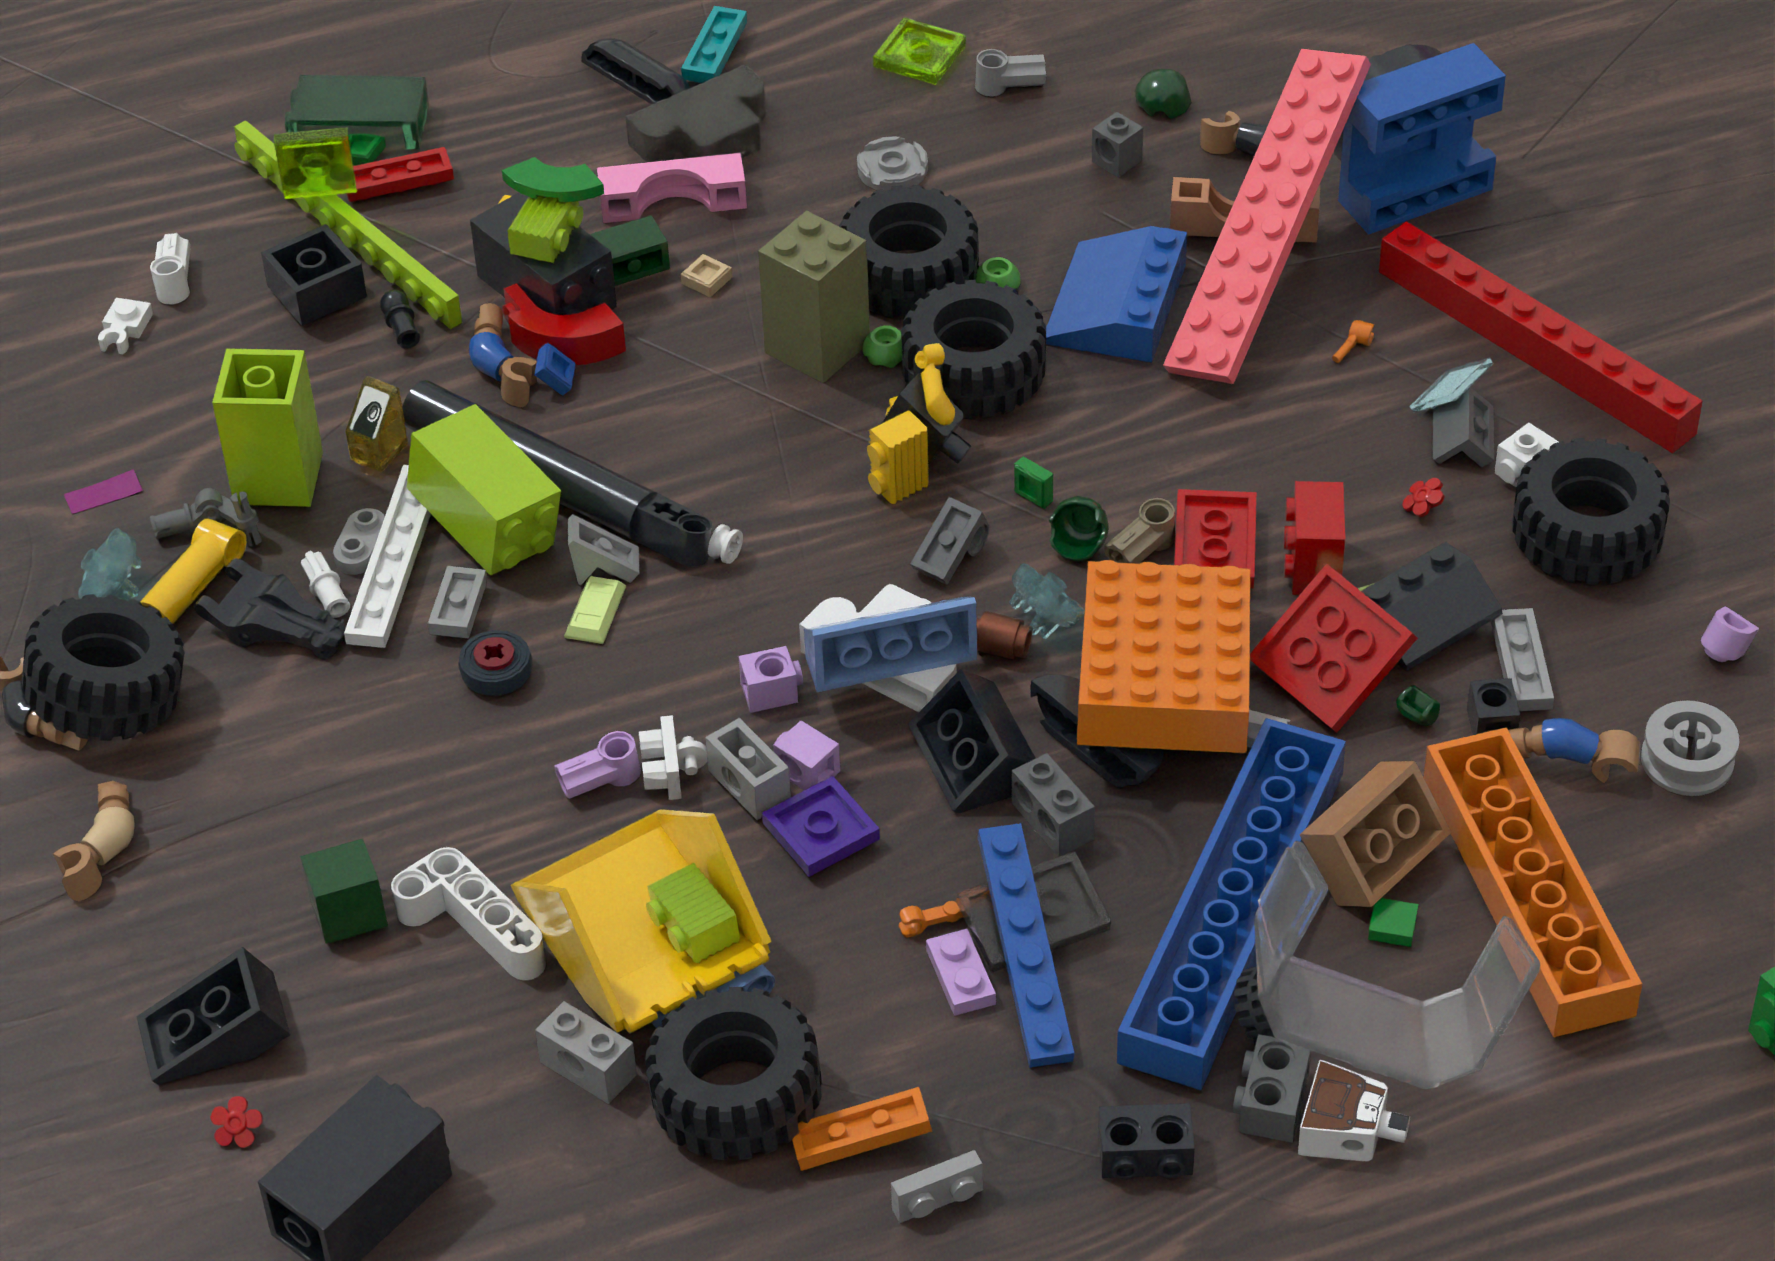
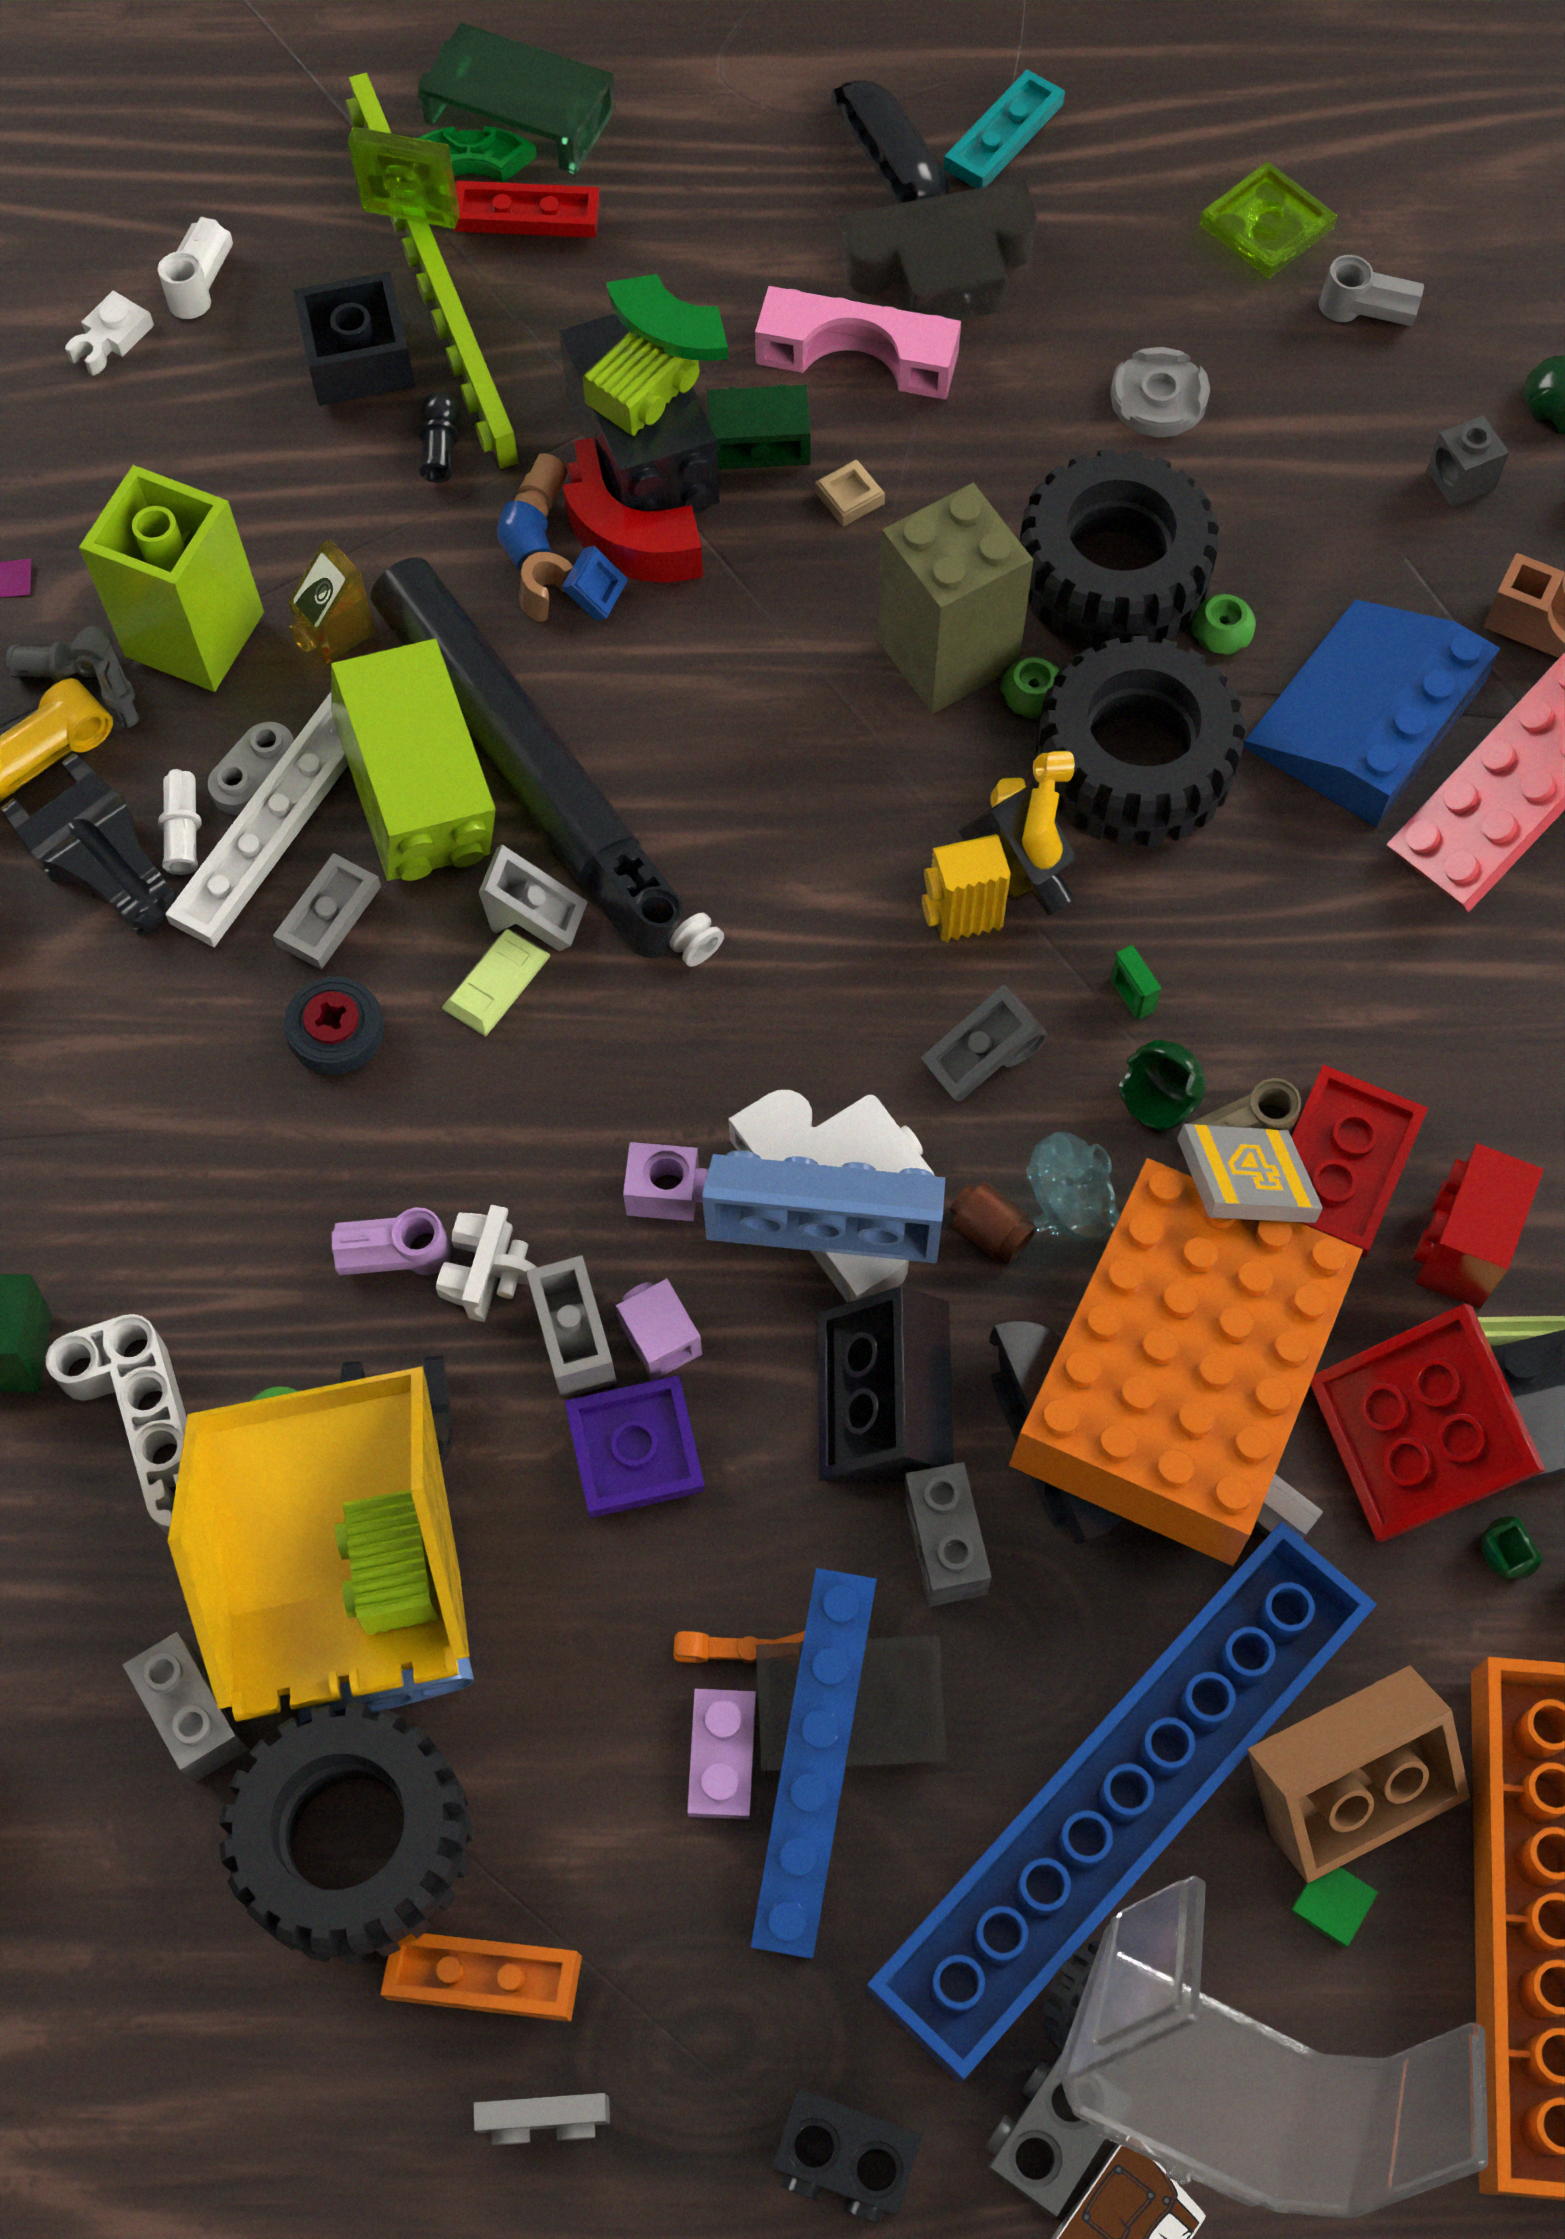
camera: 20 degrees right, 20 degrees up
(1158, 548) = (1249, 1173): none -> light grey tile

